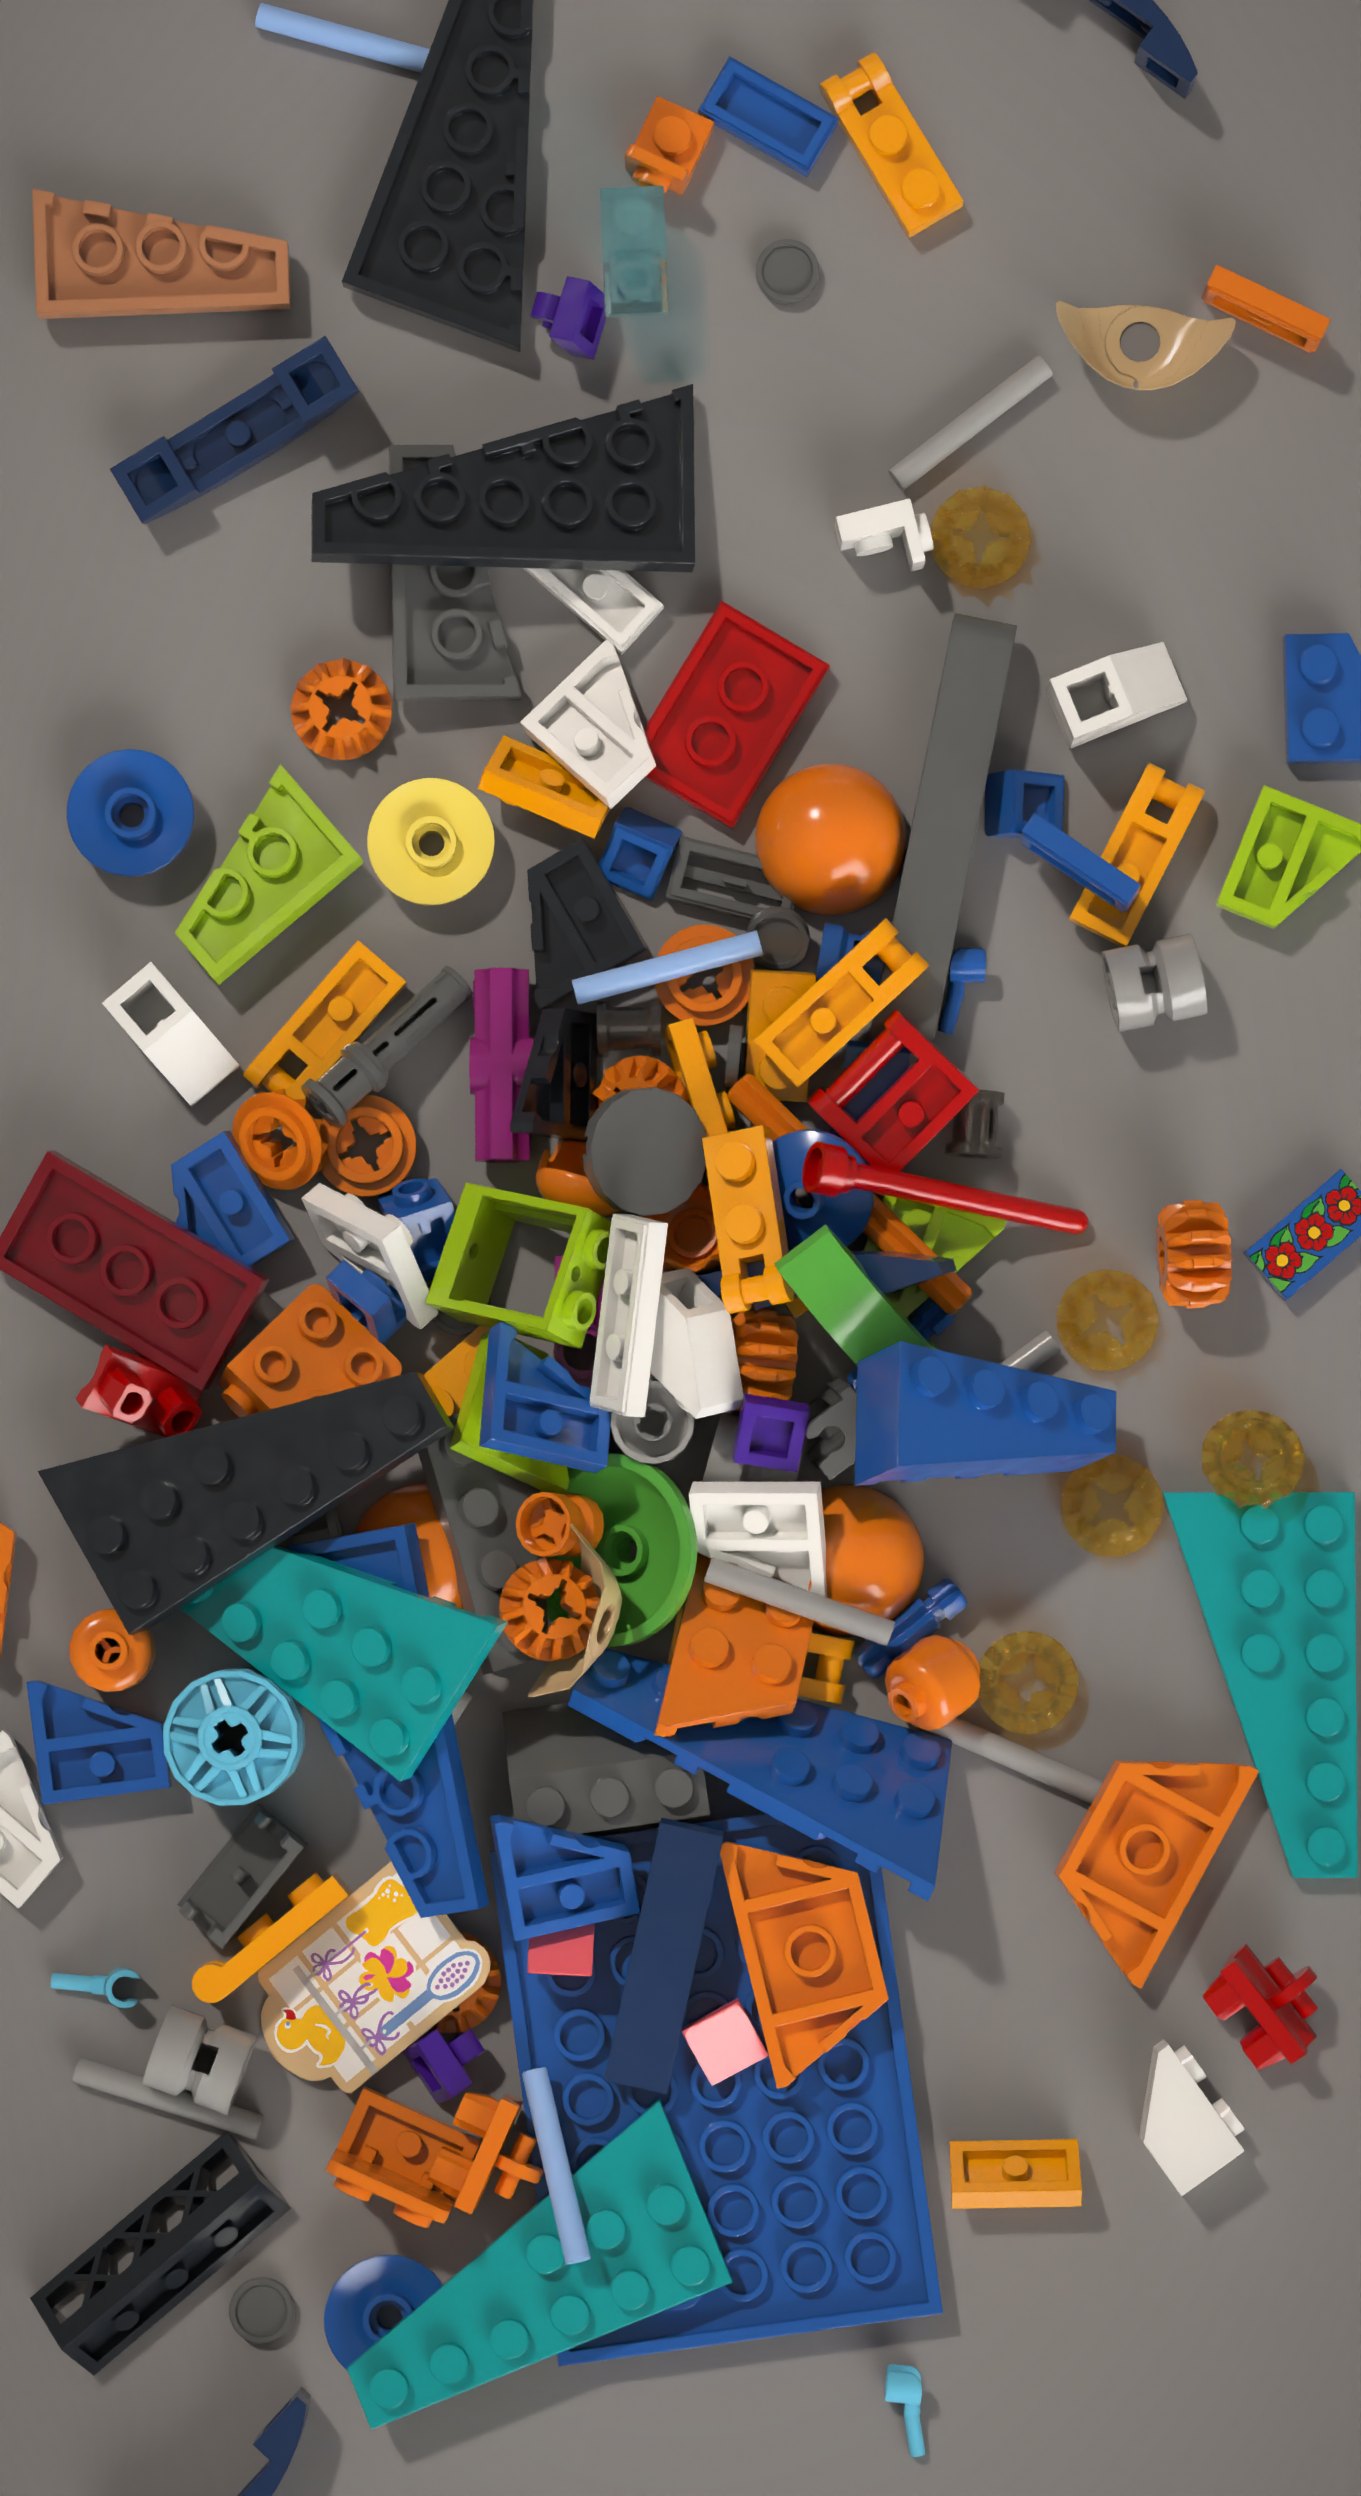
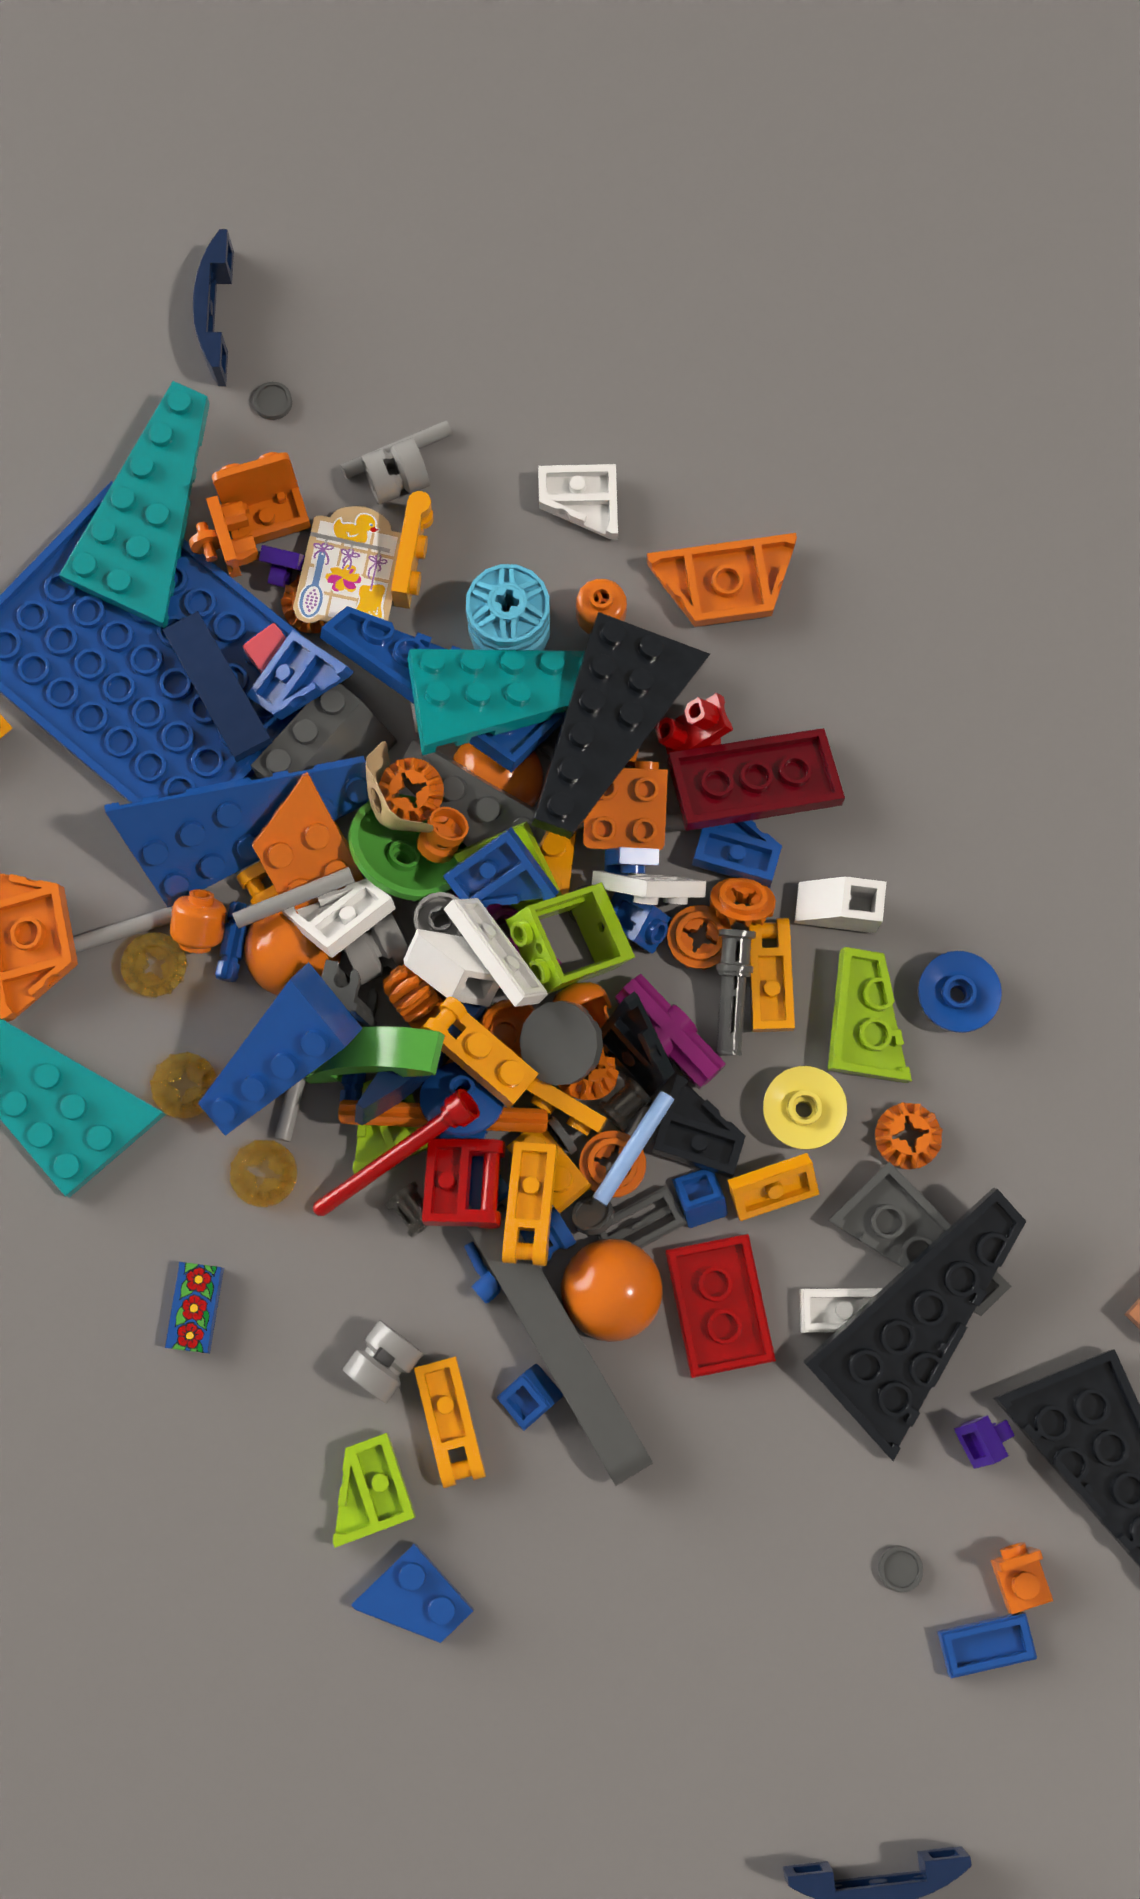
camera: 135 degrees right, 10 degrees down
(93, 1747) = (572, 560): blue wing -> none
(96, 1984) = (469, 471): medium azure hand -> none
(163, 2264) = (327, 379): black fence -> none
(236, 434) = (1088, 1223): dark blue slope -> none
(241, 1875) = (449, 564): dark grey hinge -> none
(365, 2288) = (229, 431): blue dish -> none
(556, 2166) = (185, 554): light blue bar -> none
(594, 727) = (778, 1237): white wing -> none
(634, 251) = (987, 1502): clear light blue slope -> none
(724, 2041) = (157, 676): slope -> none
(770, 1432) = (376, 959): dark purple tile -> none
(804, 1952) = (152, 745): orange wing -> none
(873, 530) = (732, 1468): white bracket -> none
(892, 147) = (909, 1689): light orange plate -> none
(970, 422) = (735, 1575): light grey bar -> none
(1000, 558) = (655, 1514): clear yellow gear -> none
(1079, 863) = (472, 1385): blue tile -> none
(1114, 693) = (533, 1497): white slope -> none
(1183, 348) = (661, 1723): tan piece -> none
(1193, 1254) = (244, 1239): orange gear -> none
(1265, 309) = (636, 1784): orange tile -> none
(1267, 1438) = (133, 1185): clear yellow gear -> none

